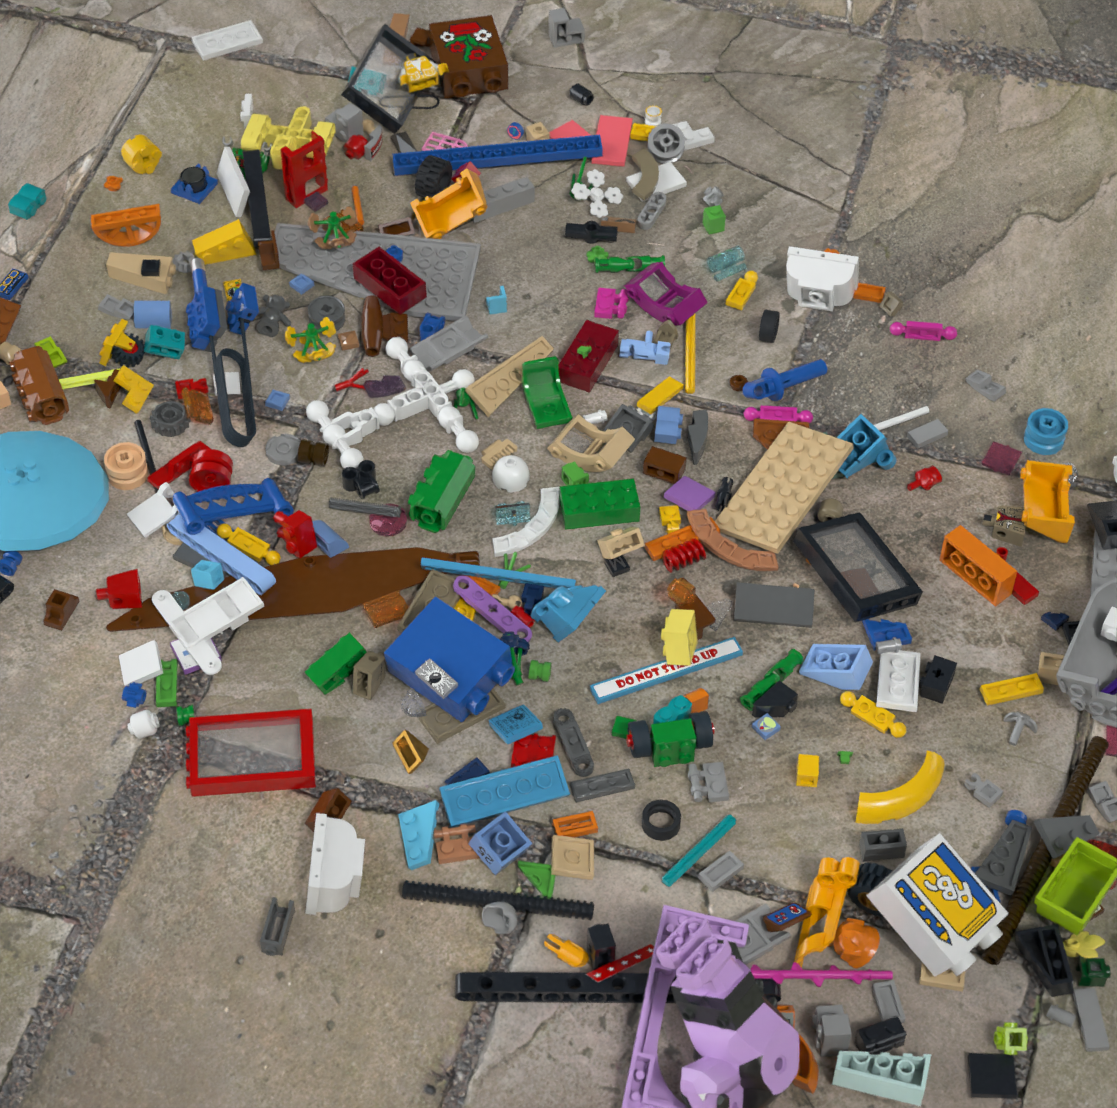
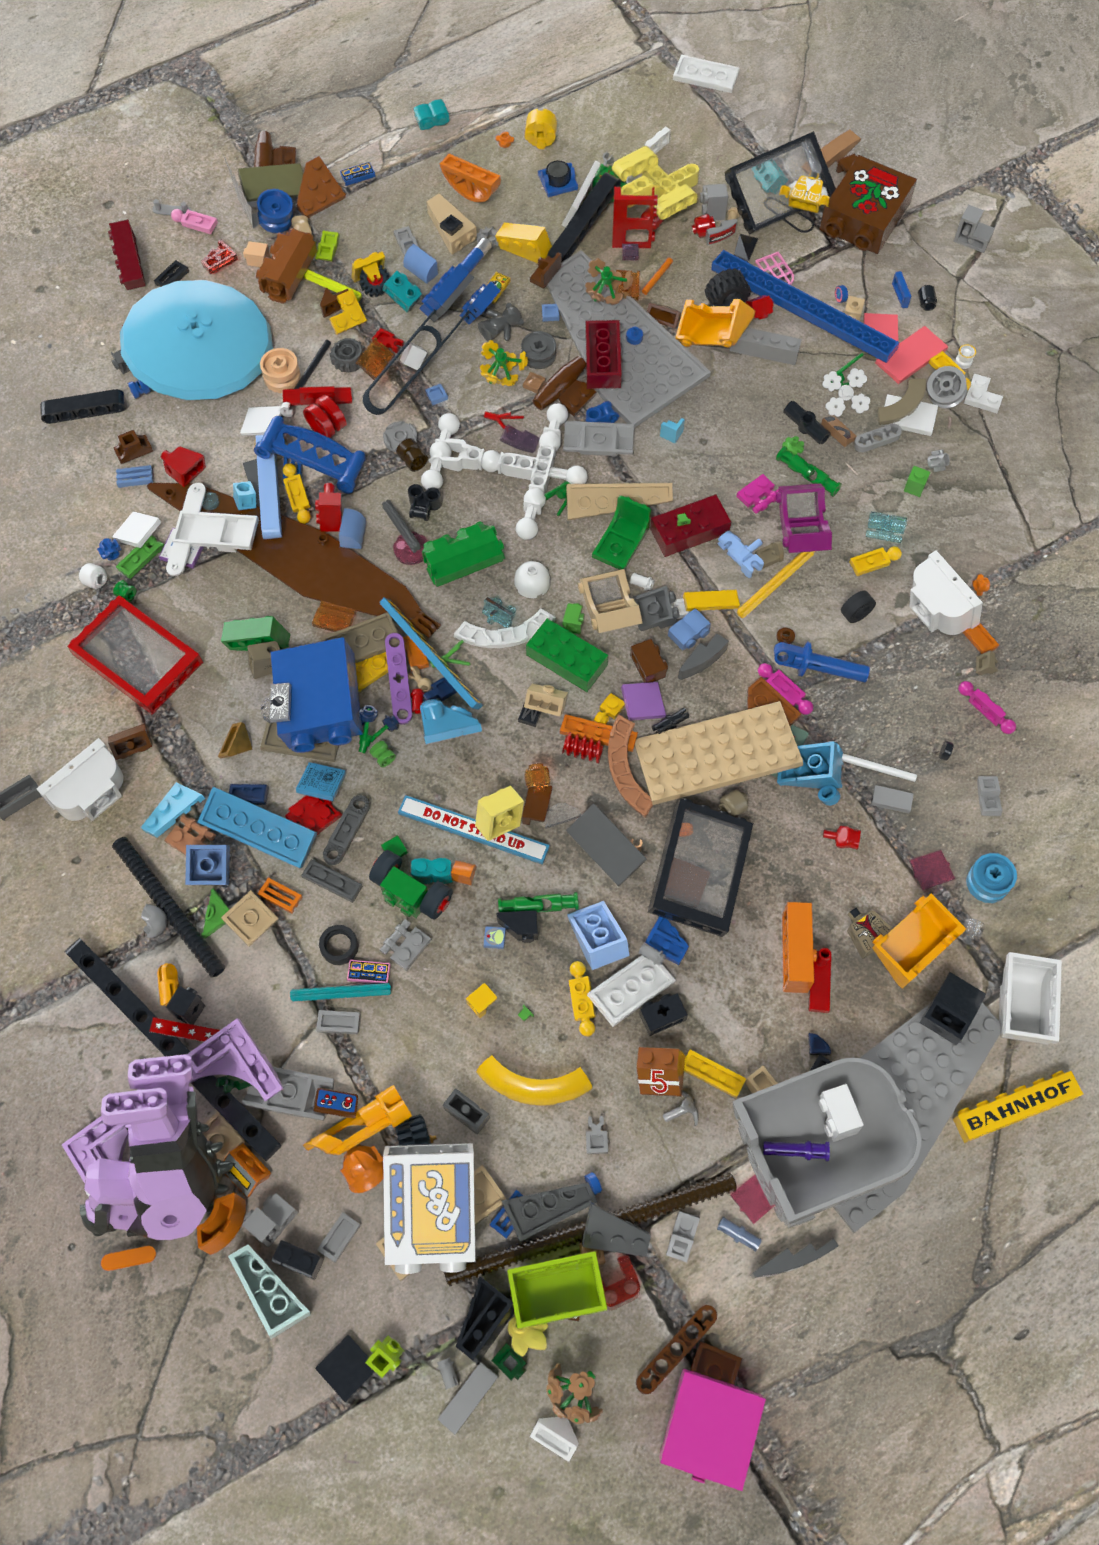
camera: 45 degrees right, 15 degrees up
(83, 628) = (134, 473): none -> medium blue tile
(496, 451) = (545, 551): tan piece -> none
(556, 100) = (901, 289): none -> blue tile
(703, 821) = (368, 972): none -> tile
(818, 976) = (291, 1153): dark pink plant -> none
(928, 376) = (946, 750): none -> black tile
(979, 712) = (660, 1071): none -> dark orange slope

